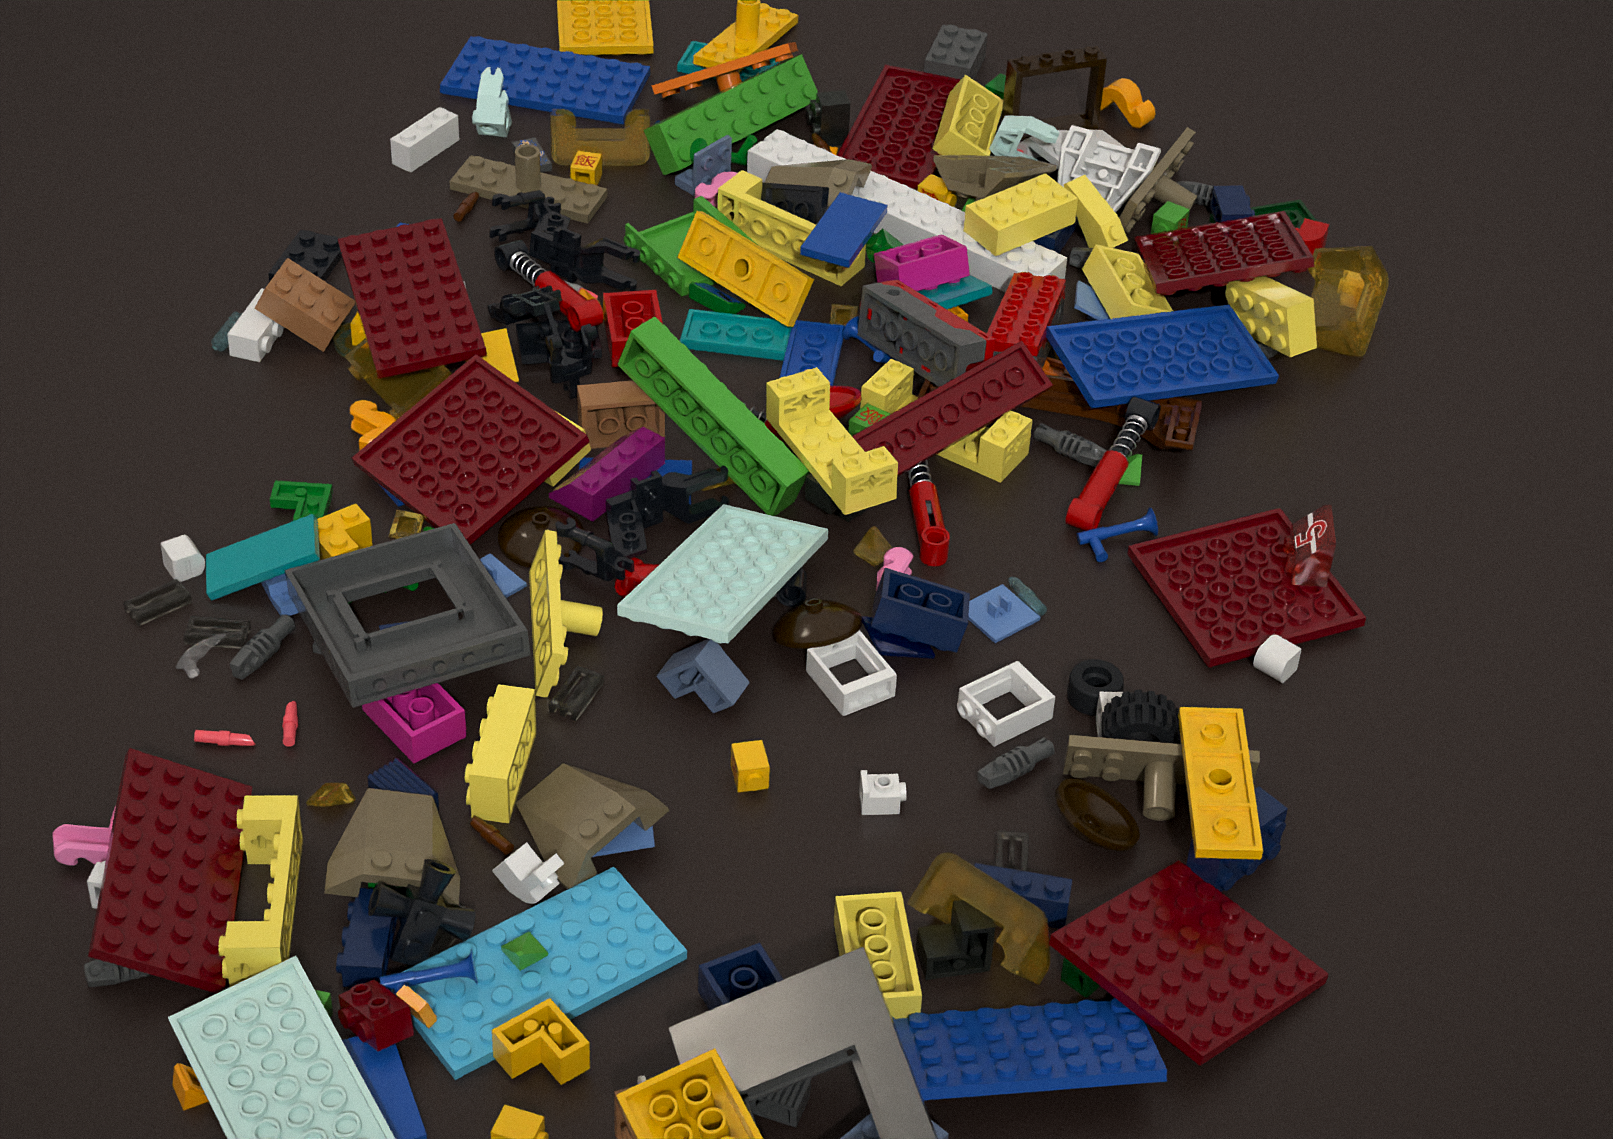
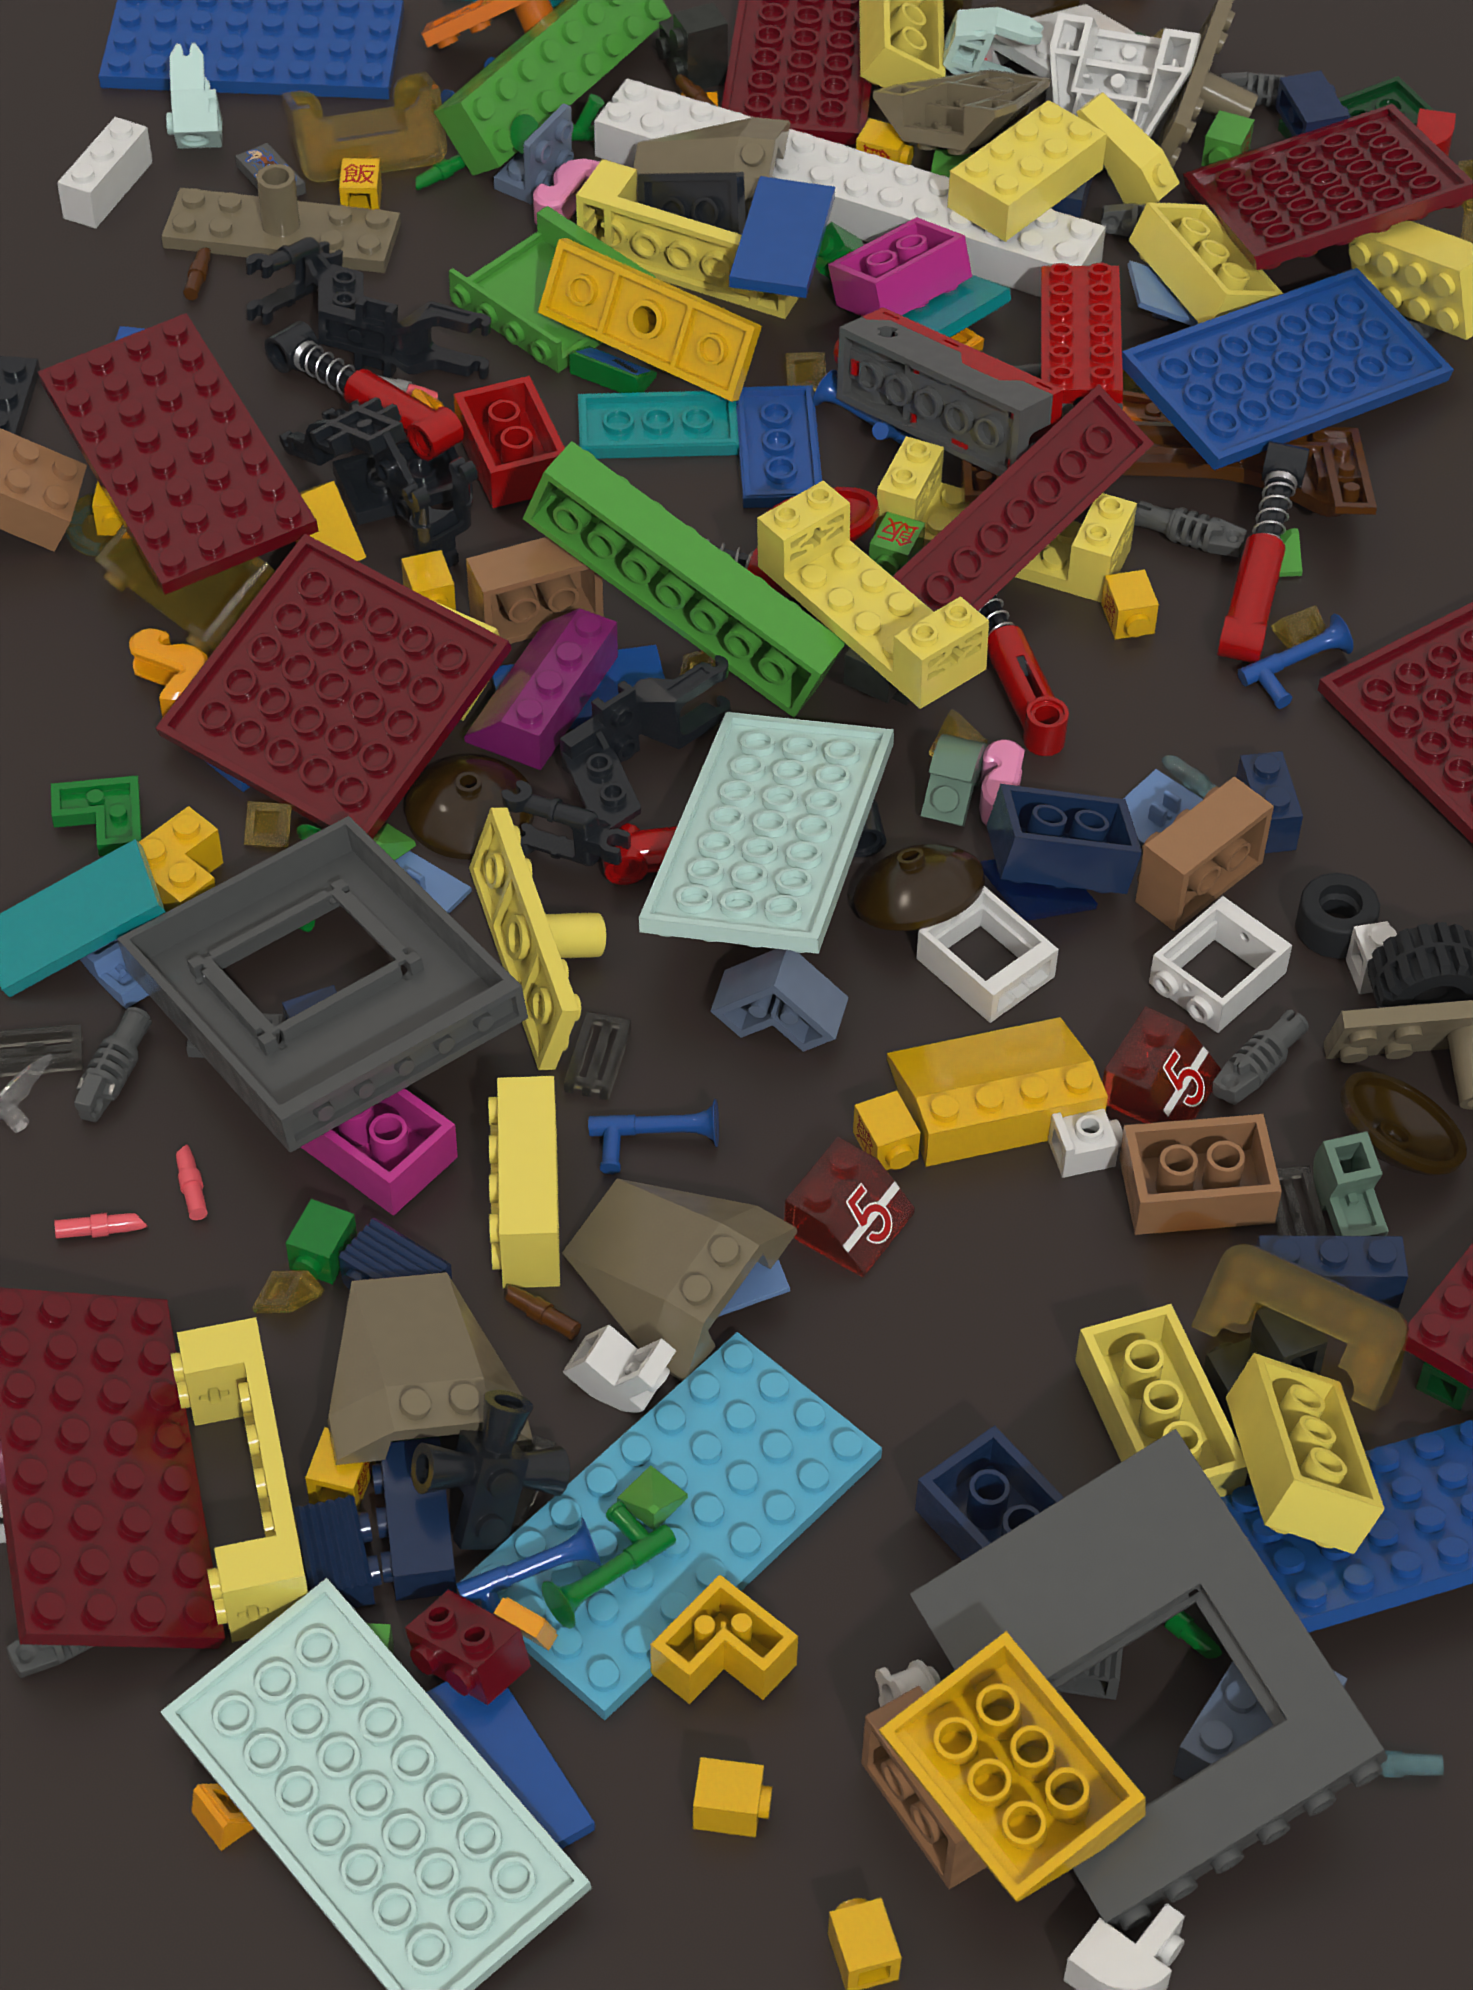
camera: 10 degrees left, 10 degrees up
(312, 942) = (334, 1548): none -> dark blue brick
(325, 909) = (330, 1481): none -> yellow brick
(357, 765) = (319, 1240): none -> green brick
(447, 996) = (566, 1599): none -> green piece
(483, 549) = (393, 841): none -> bright green slope
(556, 397) = (429, 577): none -> yellow brick
(571, 735) = (615, 1126): none -> blue piece
(642, 169) = (440, 171): none -> green piece
(709, 805) = (848, 1207): none -> clear red slope
(829, 754) = (995, 1088): none -> yellow slope
(851, 1088) = (1183, 1627): none -> green piece
(862, 561) = (952, 778): none -> sand green brick
(943, 761) = (1159, 1071): none -> clear red slope
(949, 820) = (1199, 1174): none -> medium nougat brick
(957, 991) = (1304, 1454): none -> light yellow brick
(1013, 632) = (1203, 853): none -> medium nougat brick
(1014, 483) = (1129, 604): none -> yellow brick
(1048, 842) = (1345, 1183): none -> sand green brick
(1069, 613) = (1271, 779): none -> dark blue brick
(1126, 513) = (1299, 627): none -> clear yellow slope

